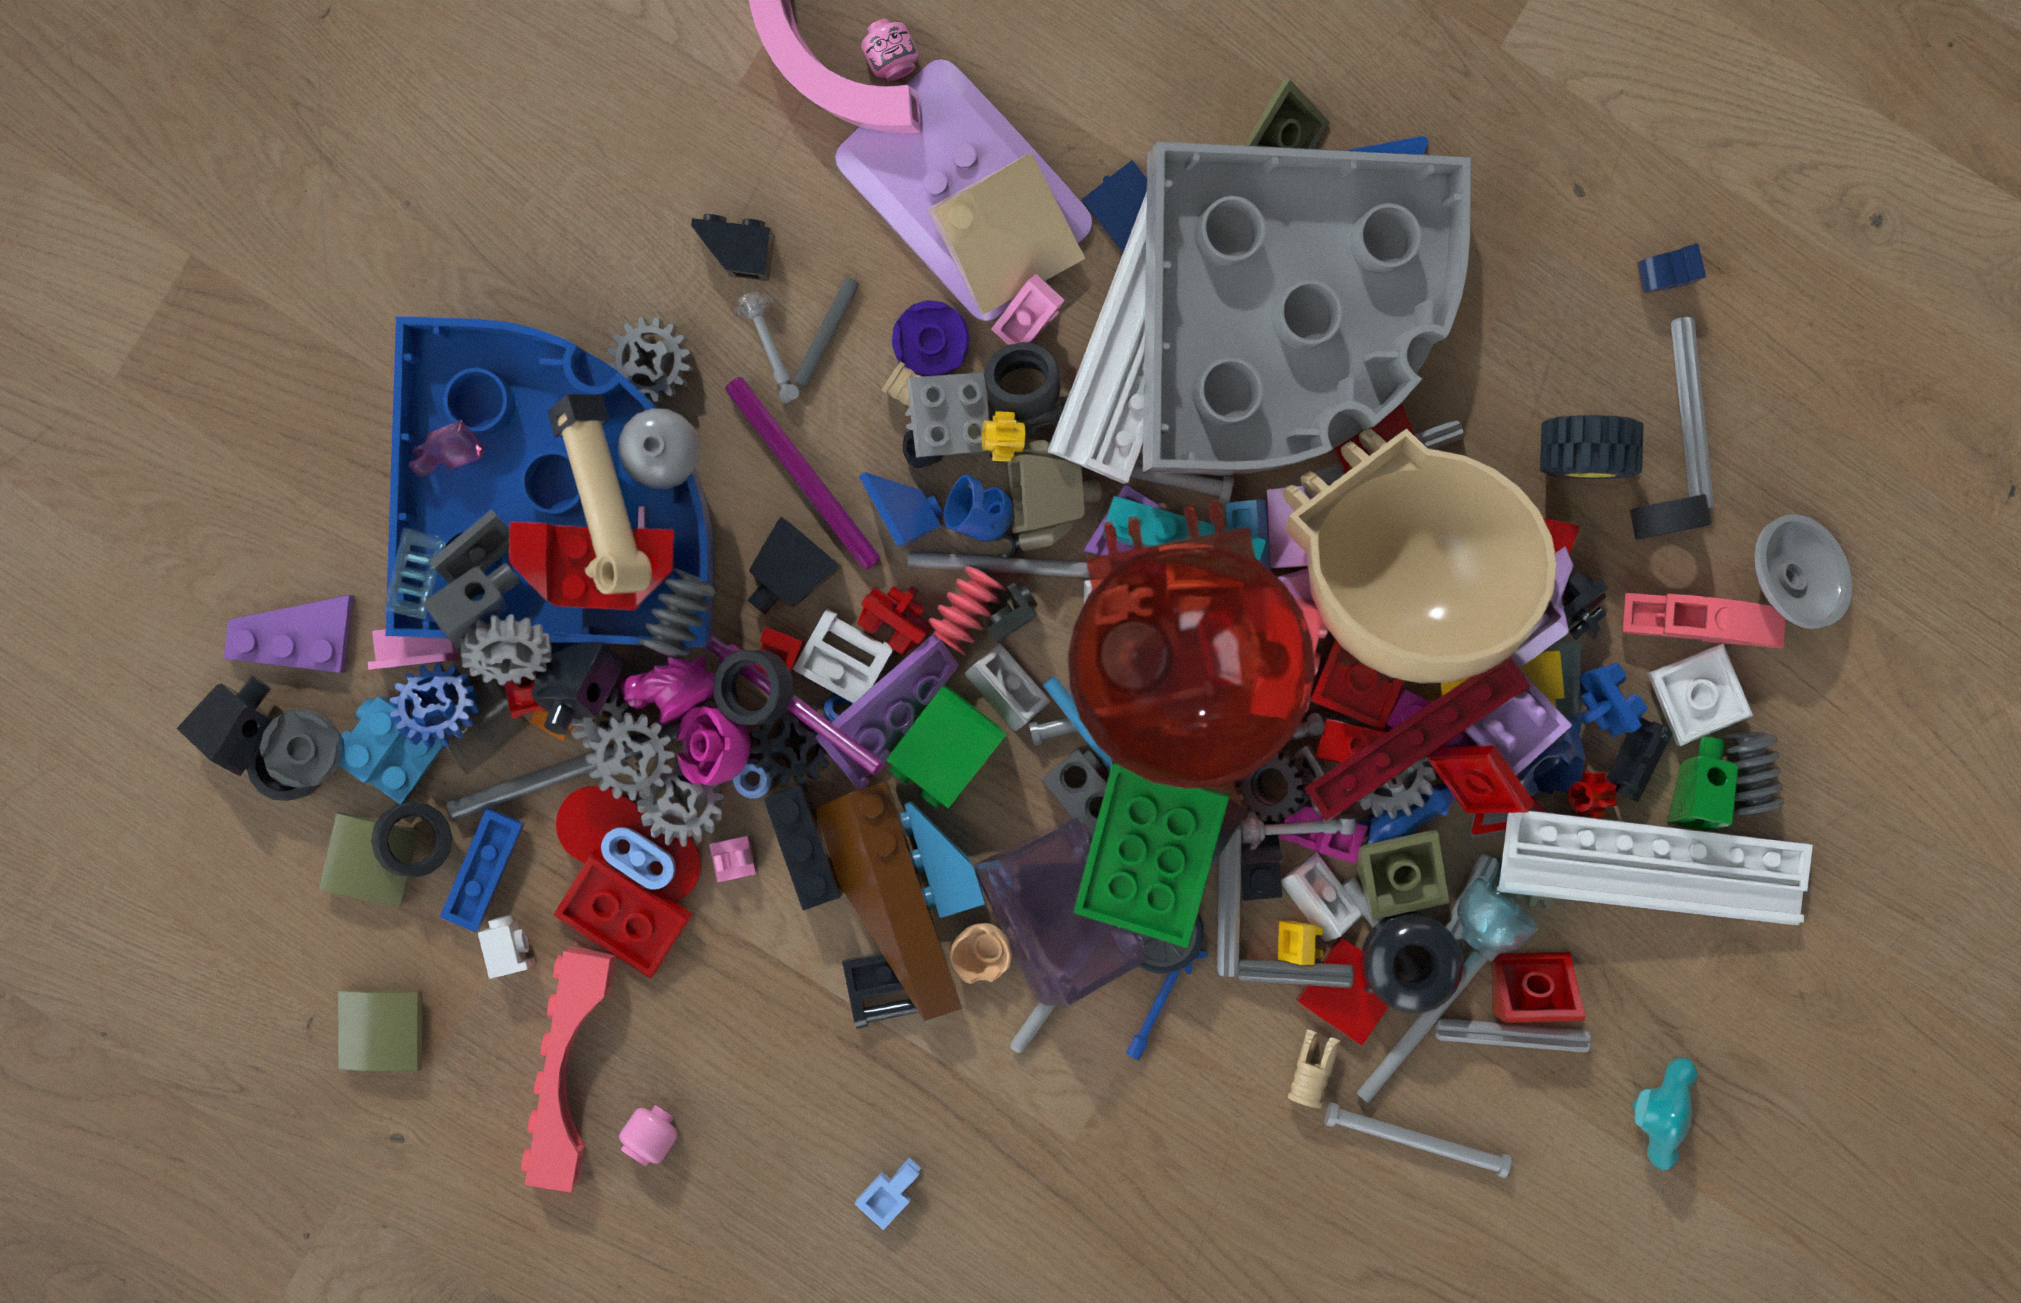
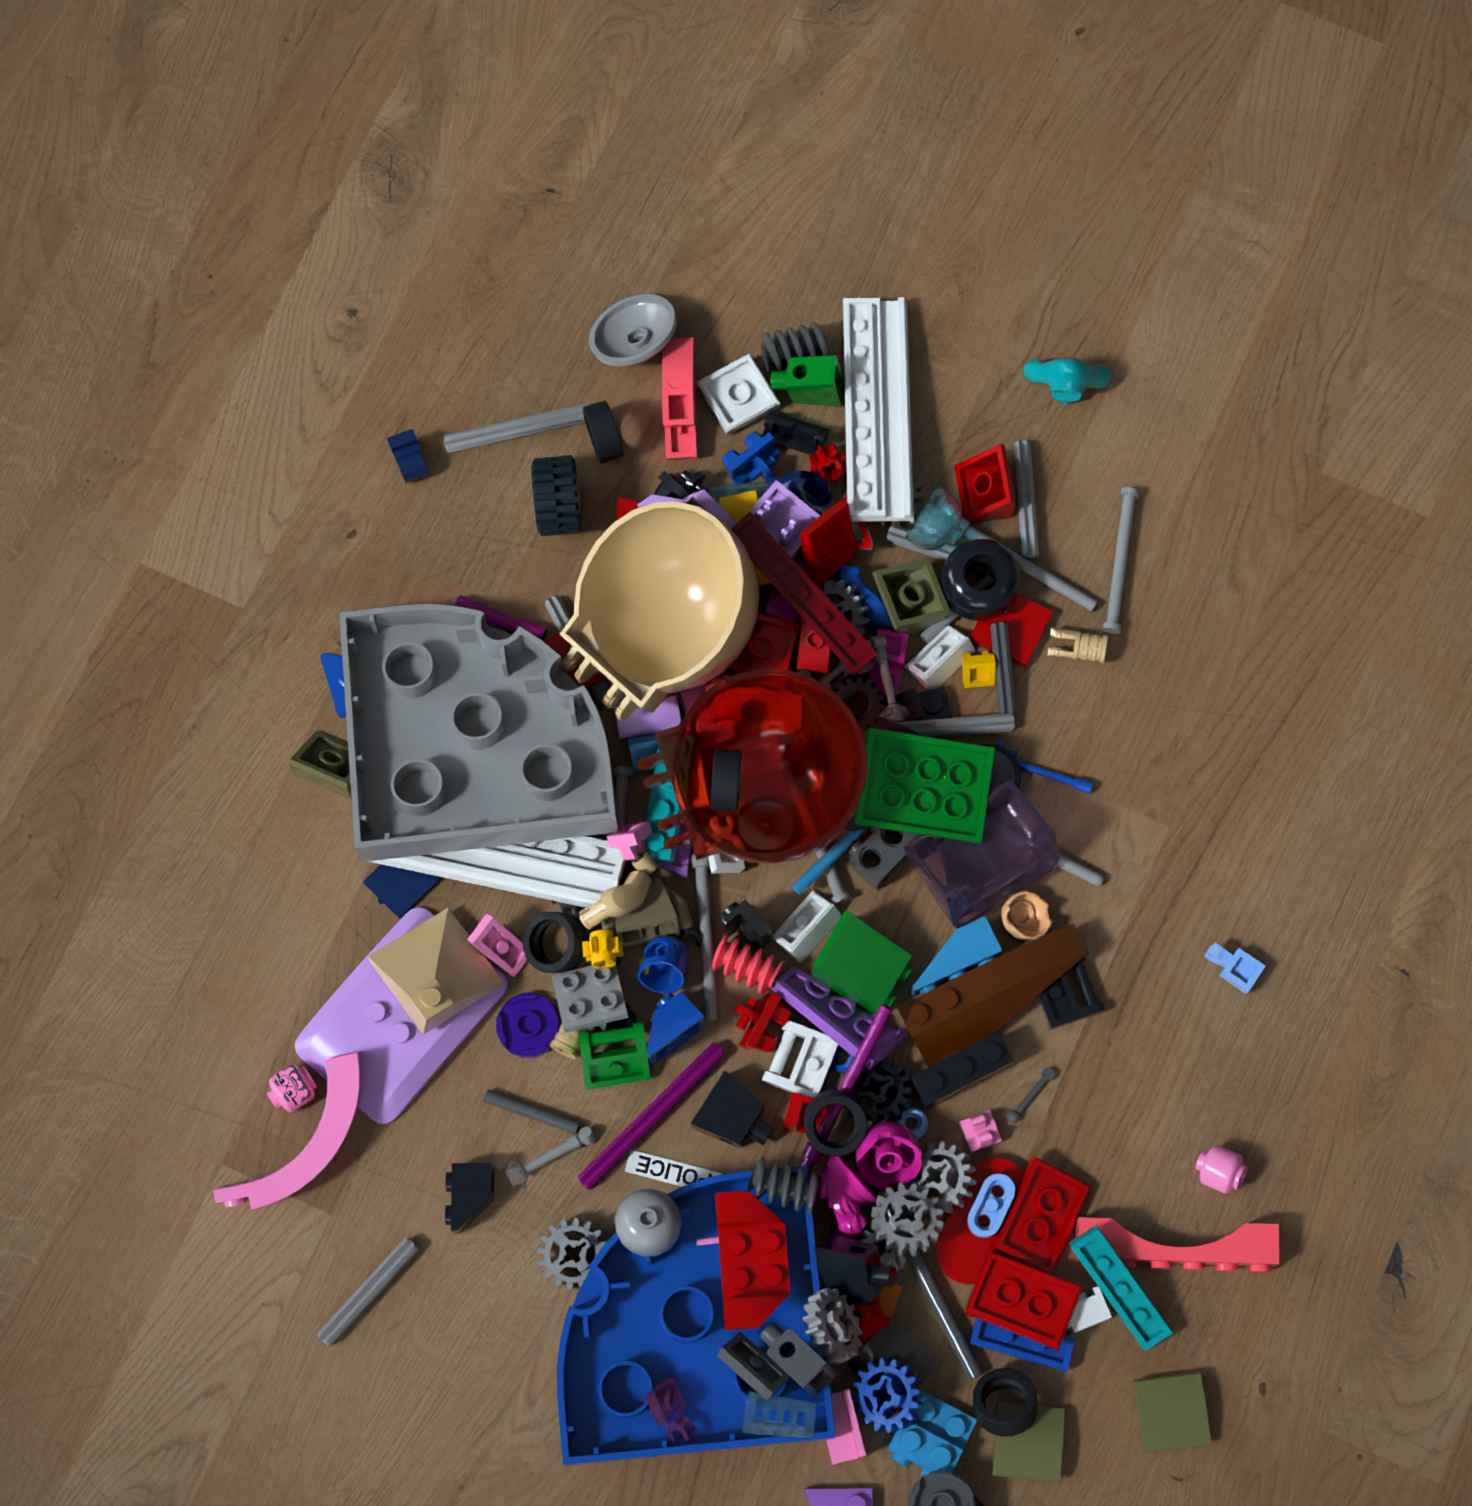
camera: 100 degrees left, 15 degrees down
(521, 879) = (1024, 1300): none -> red tile
(522, 994) = (1120, 1287): none -> teal plate
(618, 562) = (745, 1234): tan piece -> none
(640, 117) = (367, 1291): none -> light grey axle
(736, 488) = (665, 1169): none -> white sticker
(791, 948) = (1047, 1075): none -> dark grey hinge
(865, 435) = (615, 1065): none -> green plate
(1057, 470) = (622, 898): none -> tan arm
(1133, 485) = (630, 839): none -> bright pink tile
(1176, 608) = (726, 780): none -> black tyre
(1429, 386) = (501, 619): none -> magenta piece

